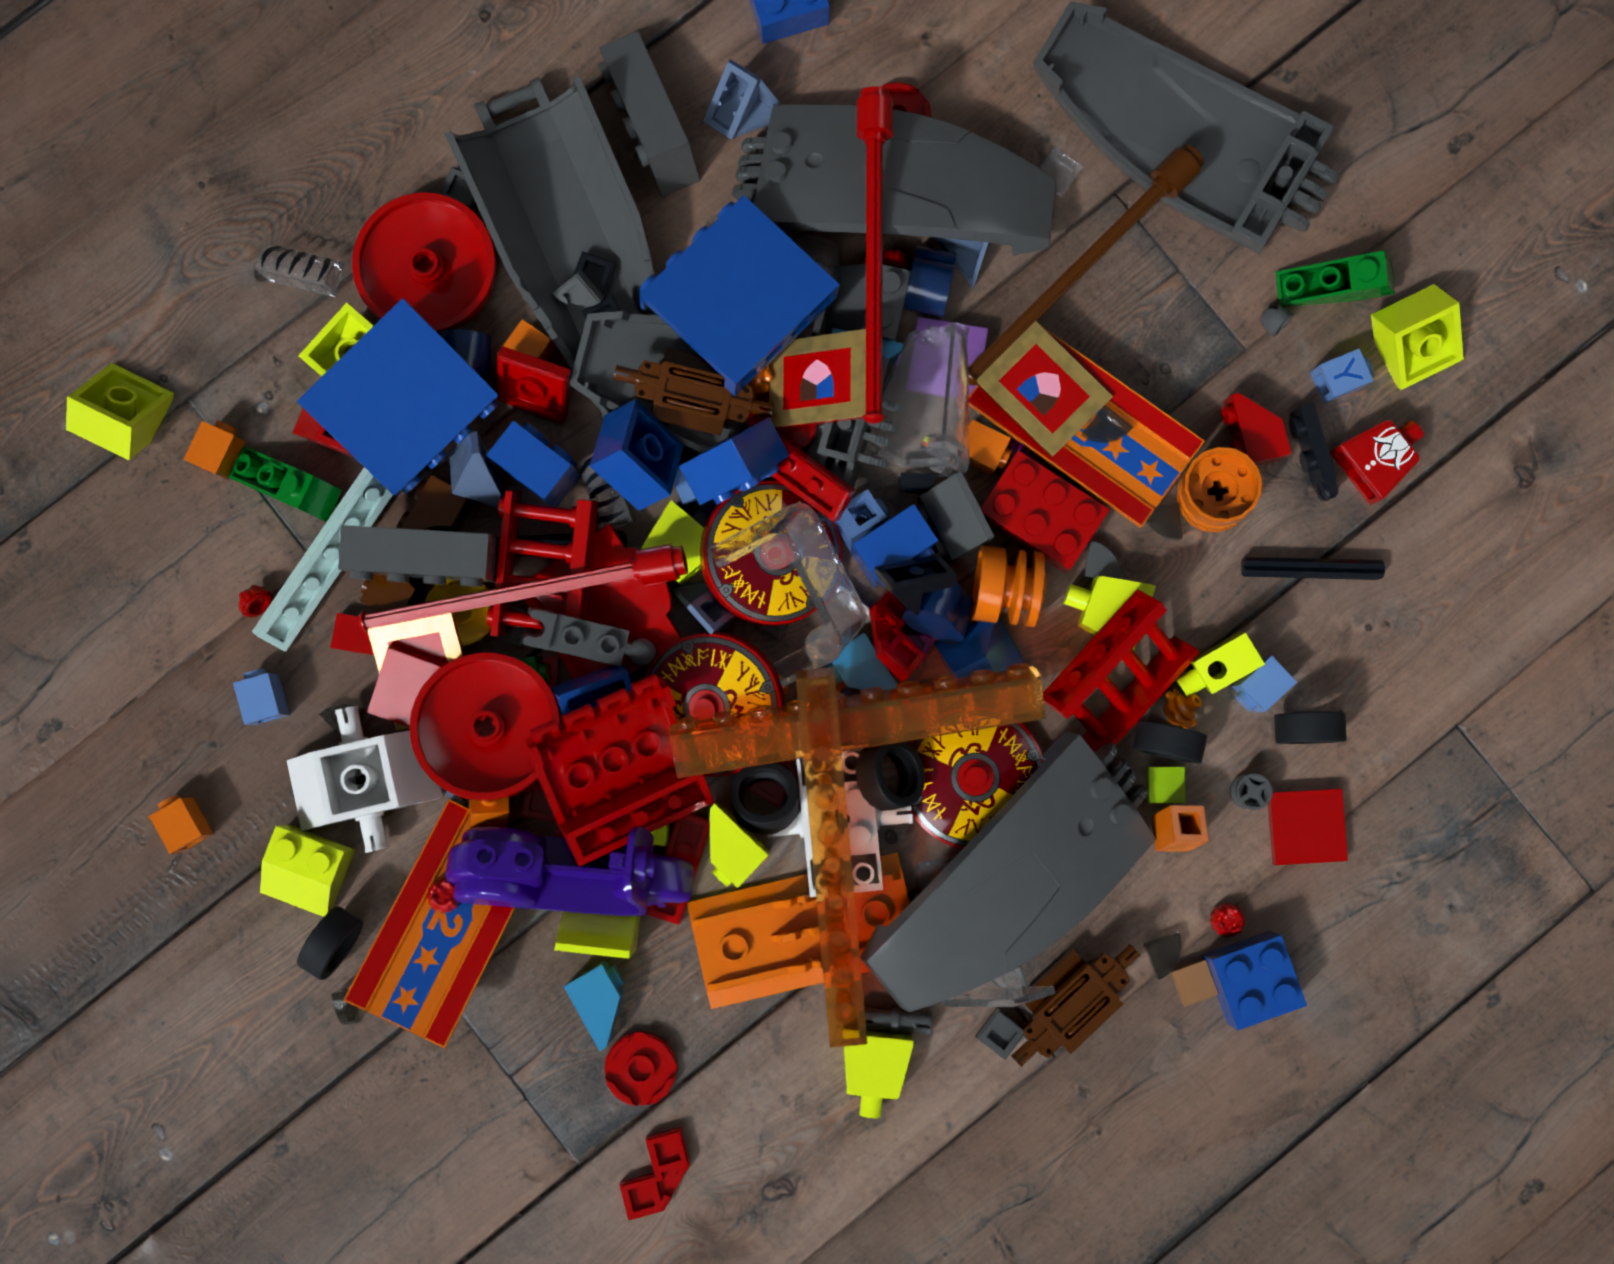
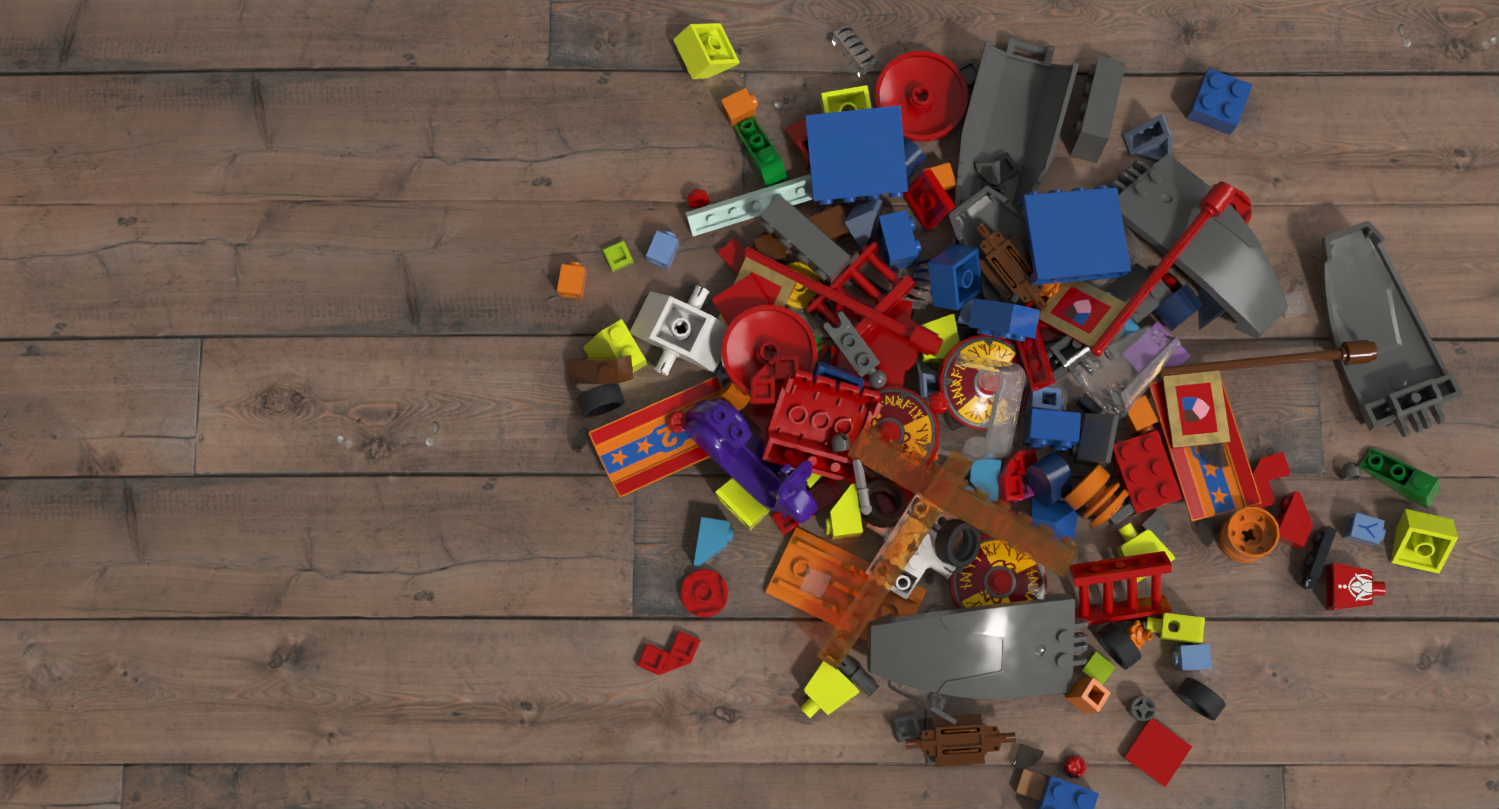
camera: 40 degrees right, 5 degrees down
(214, 747) = (618, 256): none -> lime tile
(301, 907) = (600, 370): none -> reddish brown slope
(506, 771) = (763, 382): none -> red tile
(658, 767) = (840, 442): none -> dark grey hinge
(723, 801) = (861, 485): none -> light grey piece
(736, 623) = (938, 402): none -> red piece
(760, 954) = (815, 582): none -> clear tile
(914, 577) = (1051, 450): black slope -> none
(1054, 582) = (1121, 514): none -> dark grey tile
(1179, 393) = (1268, 469): none -> red tile
(1312, 568) = (1268, 618): black axle -> none

